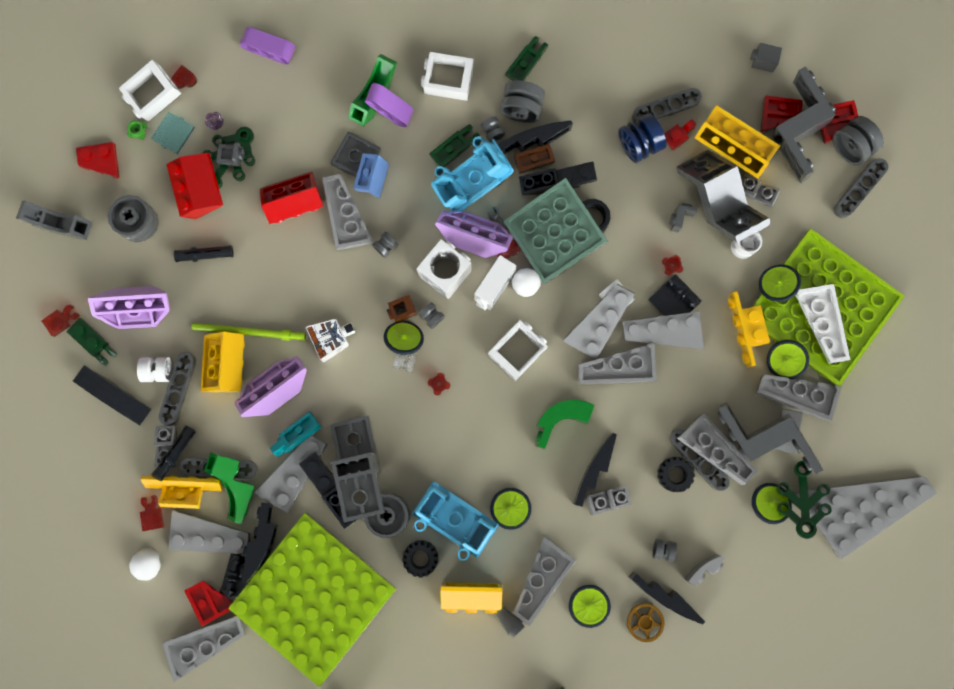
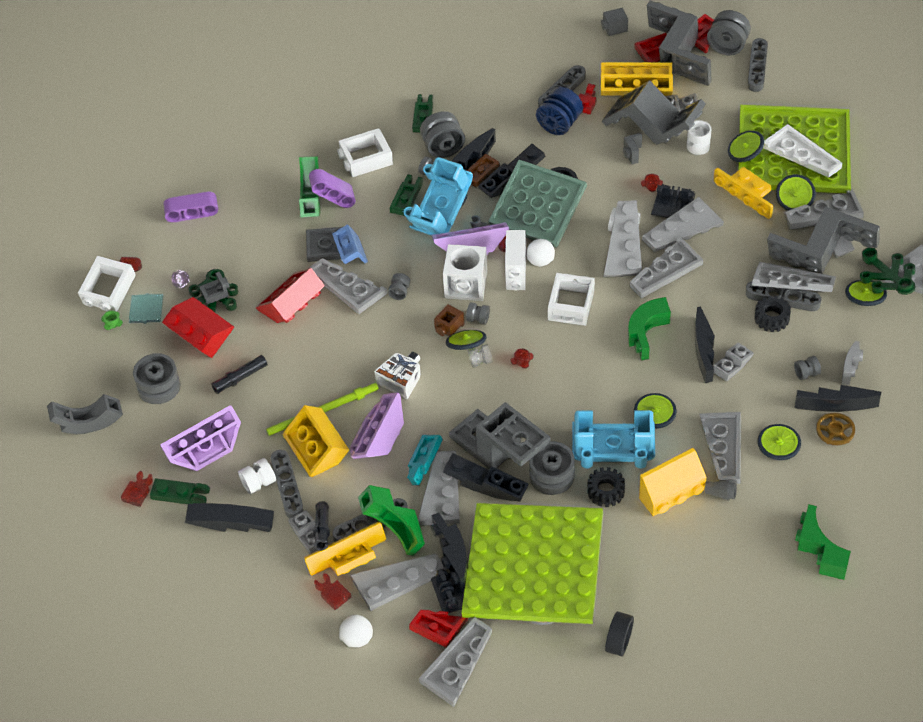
camera: 30 degrees left, 30 degrees down
(99, 158) = (89, 358): red wing -> none

